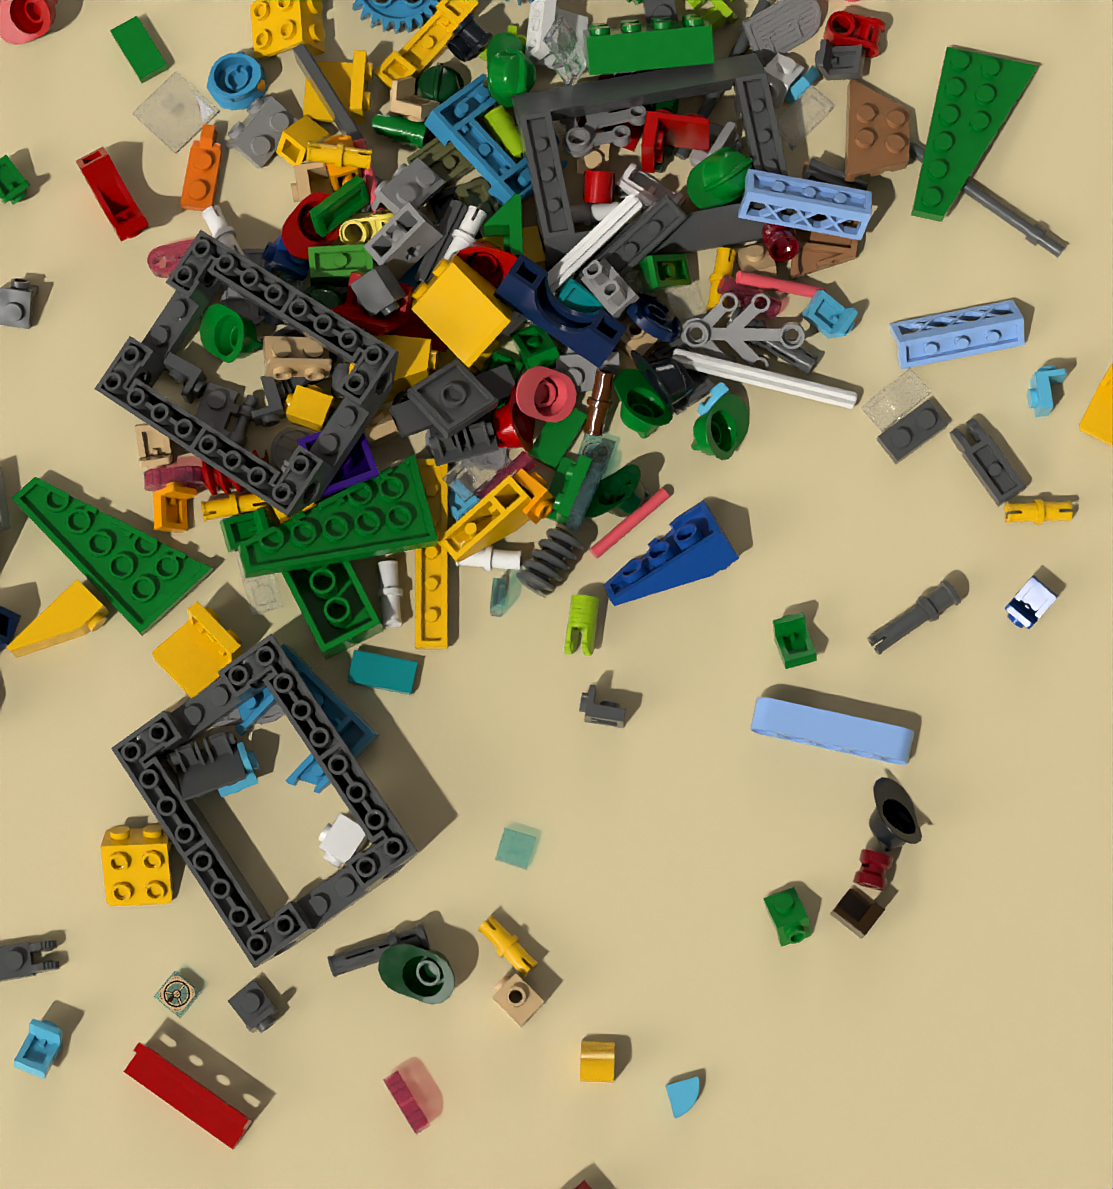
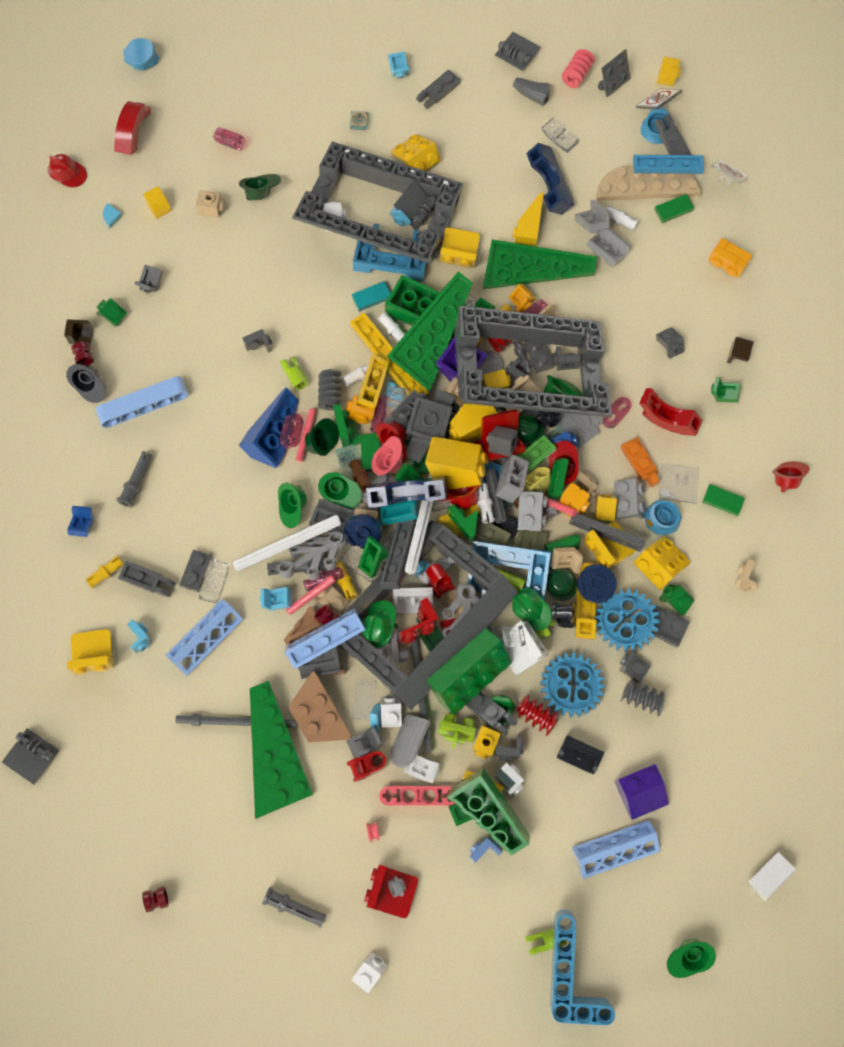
camera: 140 degrees right, 5 degrees down
(187, 1095) = (323, 88): red fence -> none
(220, 228) = (603, 435): white pin -> none
(254, 1007) = (320, 134): dark grey bracket -> none
(339, 155) = (574, 491): yellow pin -> none
(371, 953) = (279, 192): dark grey pin -> none
(399, 46) = (596, 584): none -> dark blue tile
(498, 597) = (342, 358): clear light blue tile -> none
(508, 946) = (229, 222): yellow pin -> none
(515, 848) = (256, 264): clear light blue tile -> none
(585, 496) = (333, 424): clear light blue tile -> none
(608, 287) = (391, 521): light grey hips -> none
(647, 537) = (291, 430): none -> clear pink beam
(666, 377) = (333, 502): black piece -> none
(696, 928) = (149, 279): none -> dark grey bracket
(716, 392) = (305, 518): medium azure tile -> none
(793, 640) = (186, 429): green bracket -> none

